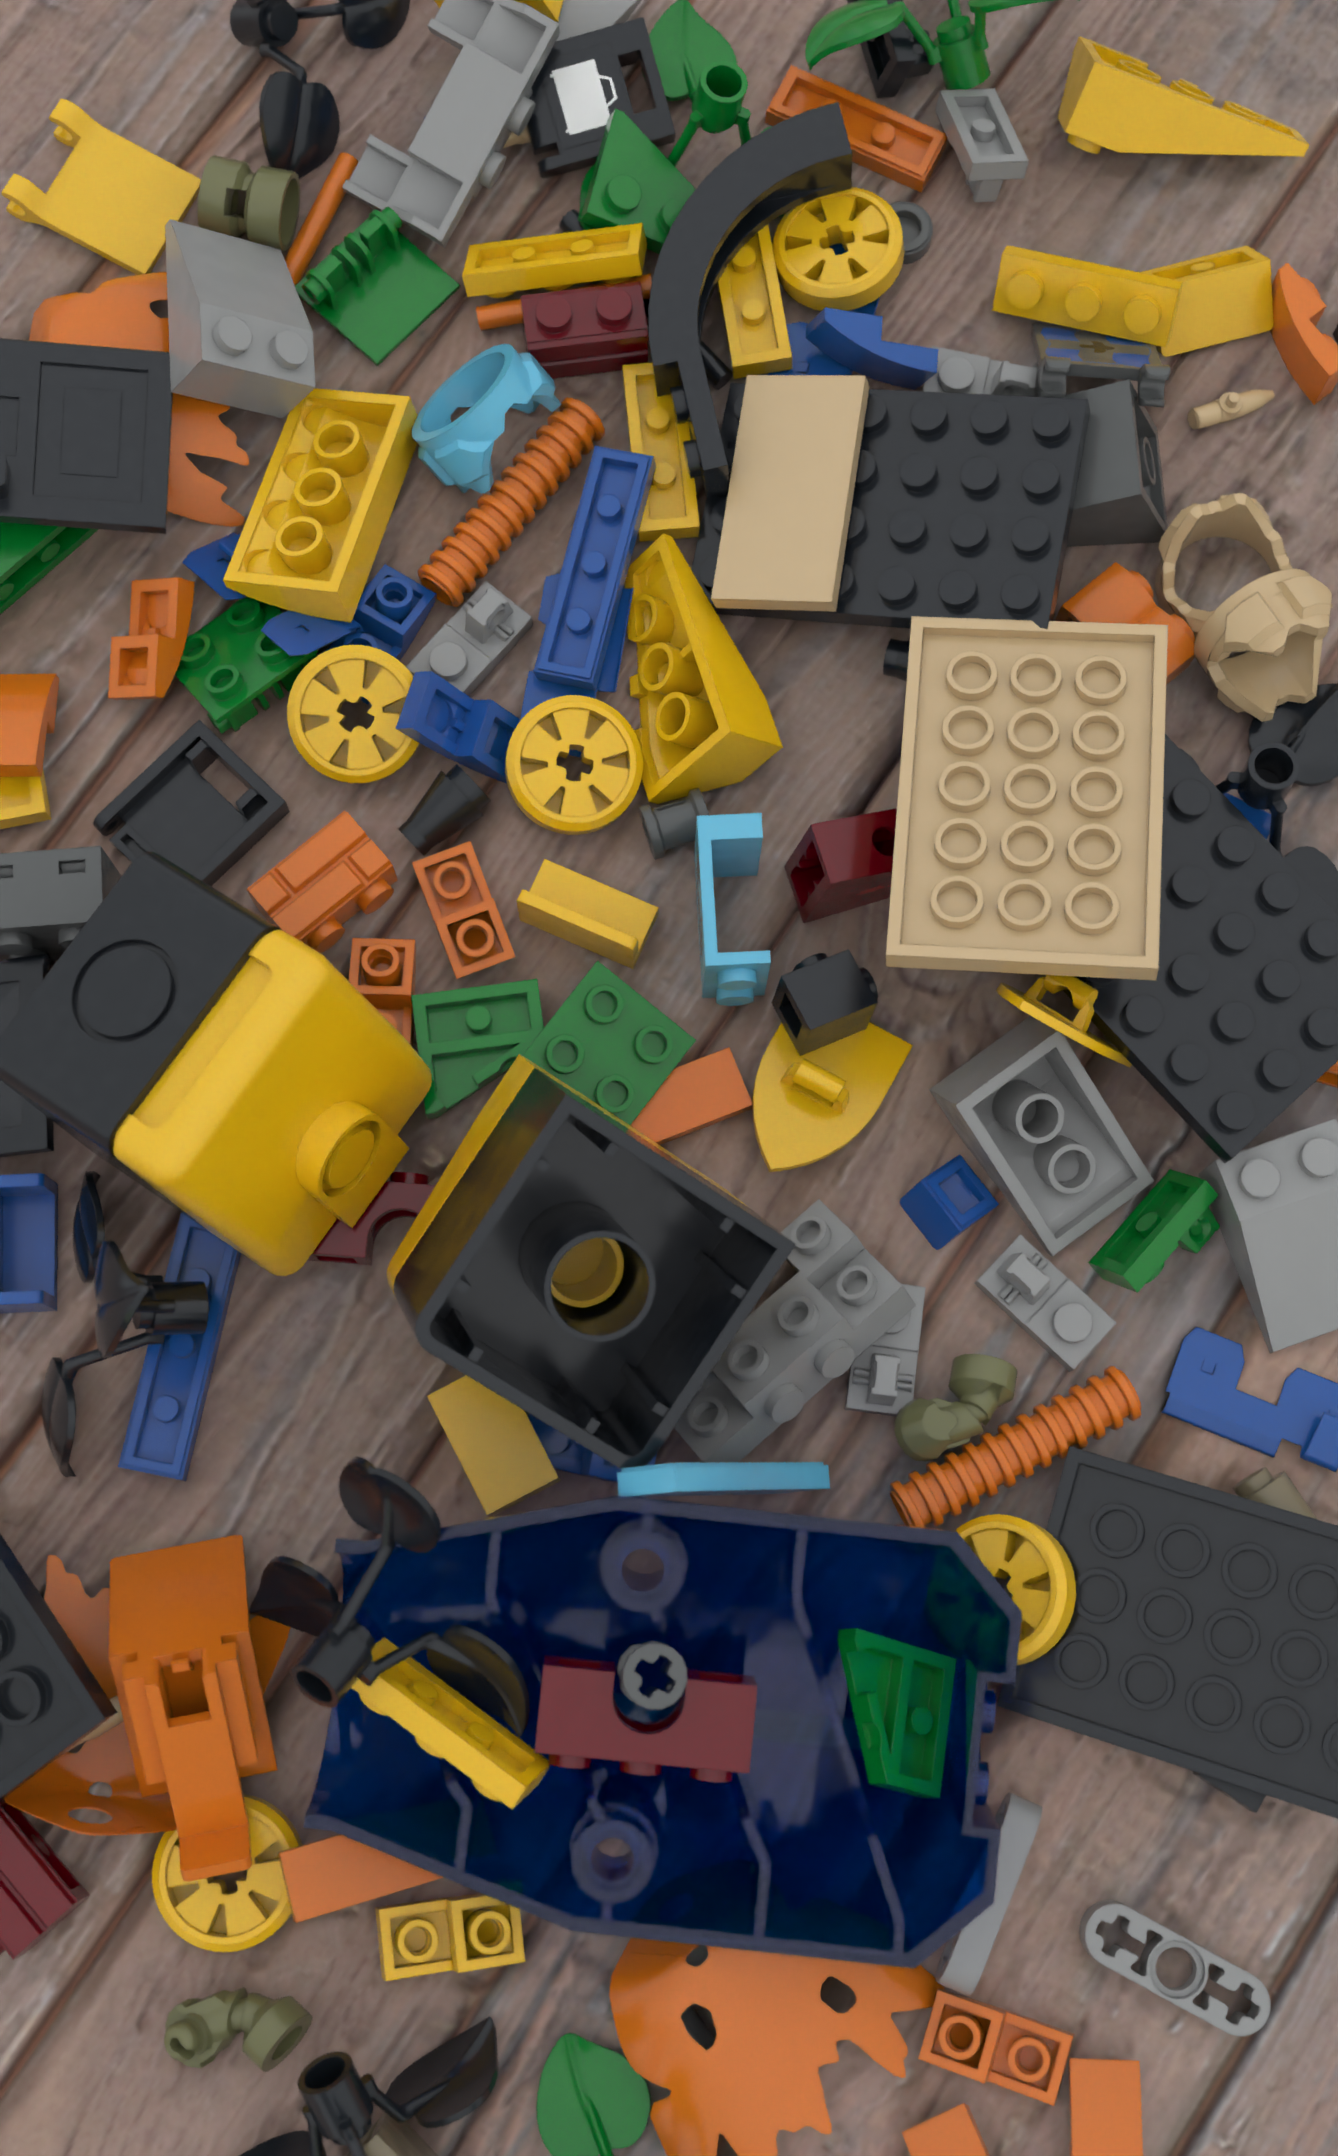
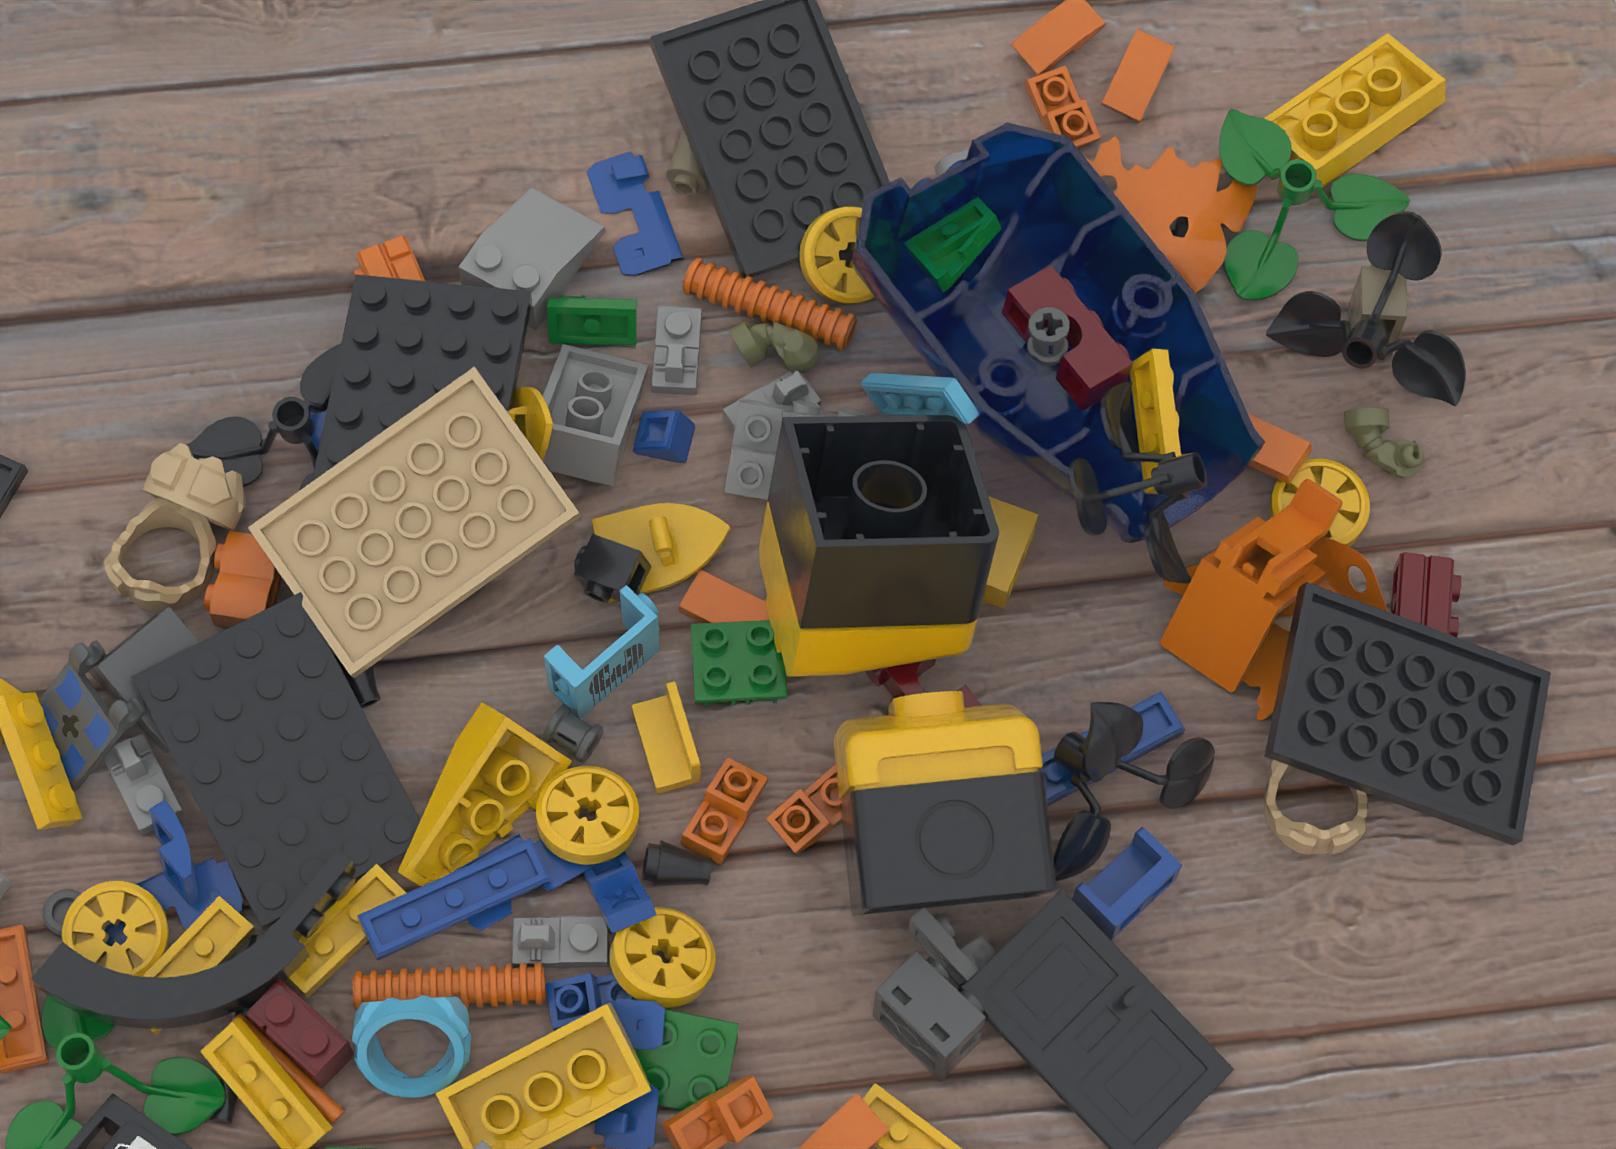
camera: 130 degrees left, 10 degrees down
(184, 816) = (809, 1009): black container -> none
(325, 884) = (779, 890): orange brick -> none
(448, 1936) = (1259, 391): yellow slope -> none
(473, 1037) = (788, 741): green wing -> none
(634, 184) = (173, 1079): green wing -> none
(791, 492) = (316, 811): tan tile -> none
(843, 864) = (520, 615): dark red torso -> none
(1226, 1974) = (947, 78): light grey beam -> none
(1228, 407) = (40, 639): tan helmet -> none

